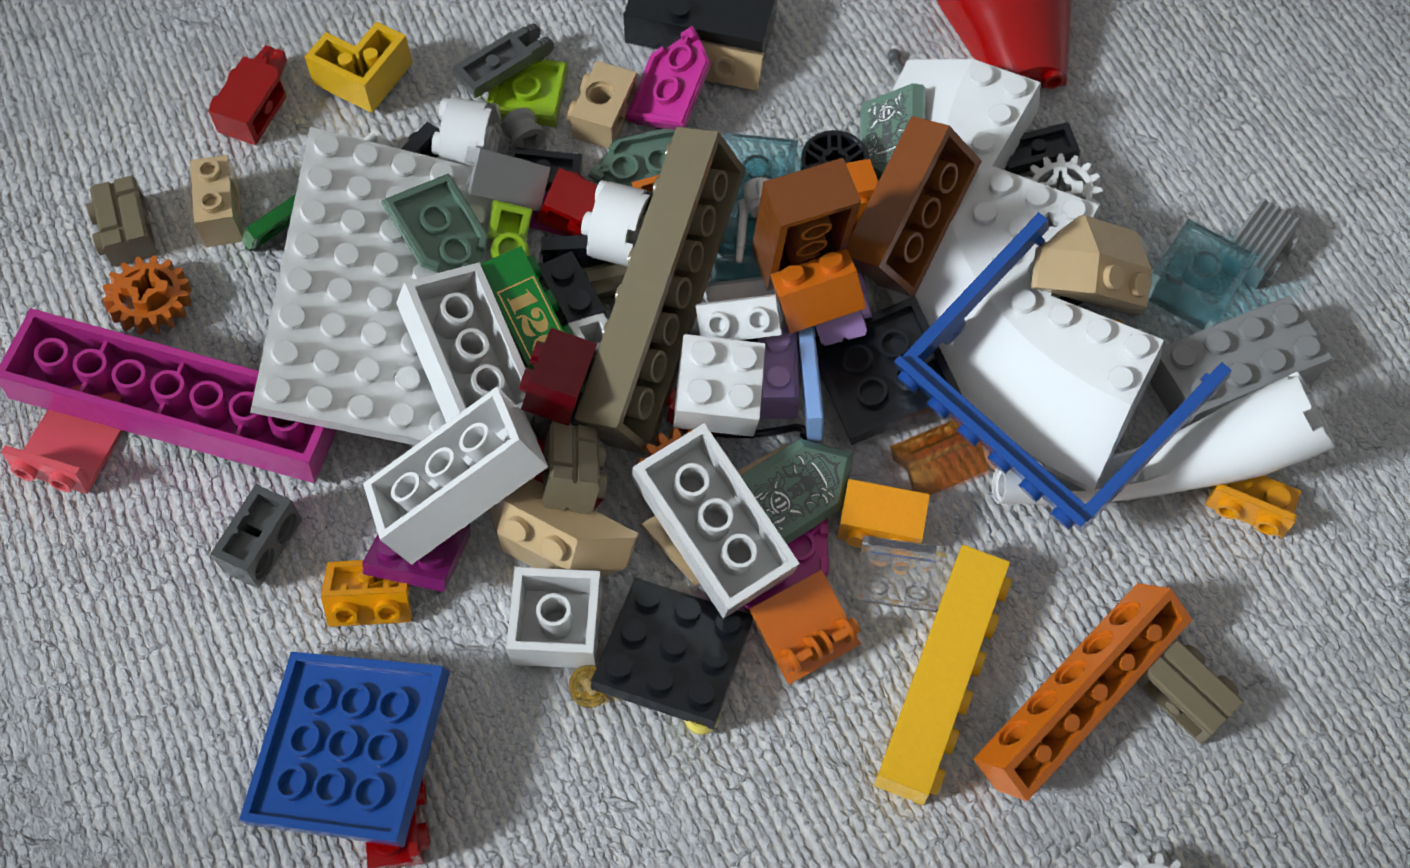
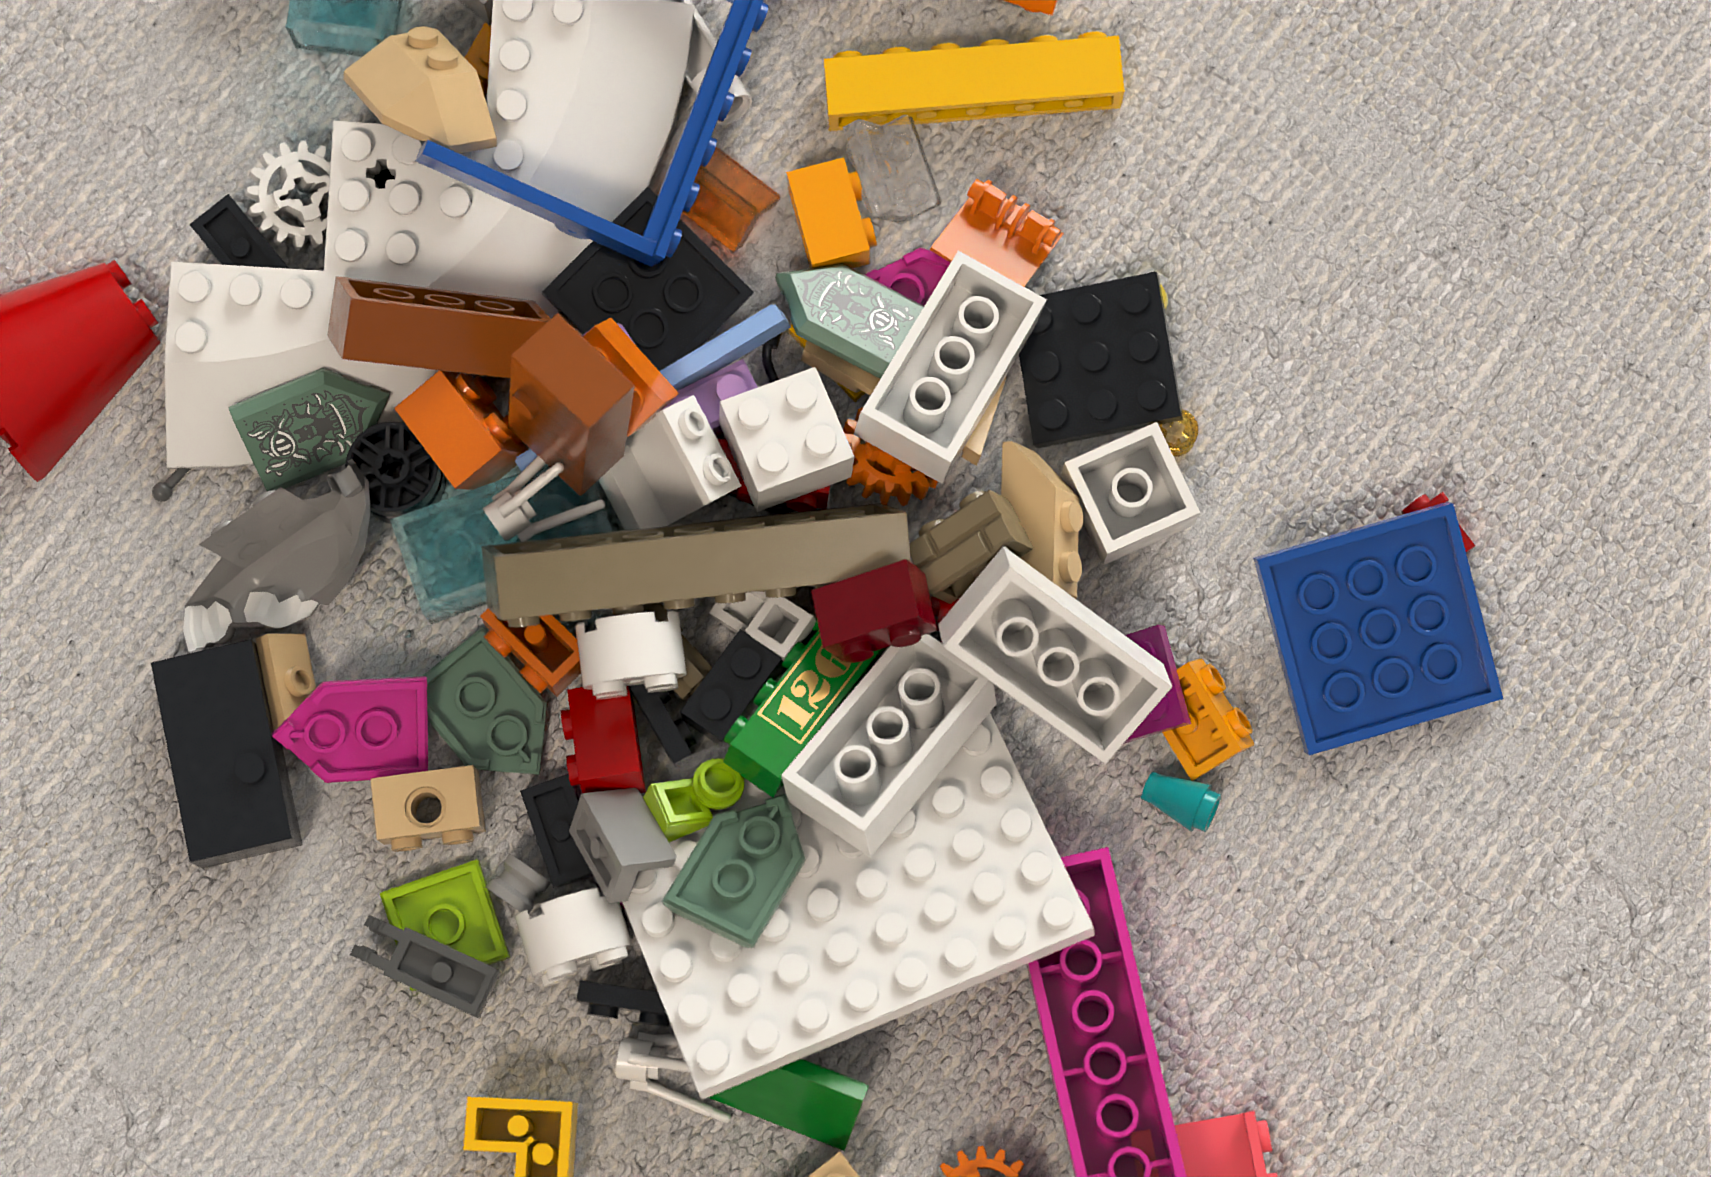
camera: 115 degrees left, 15 degrees up
(256, 536) = (1210, 866): dark grey brick -> none
(313, 551) = (1183, 800): none -> teal cone
(805, 75) = (280, 560): none -> light grey animal

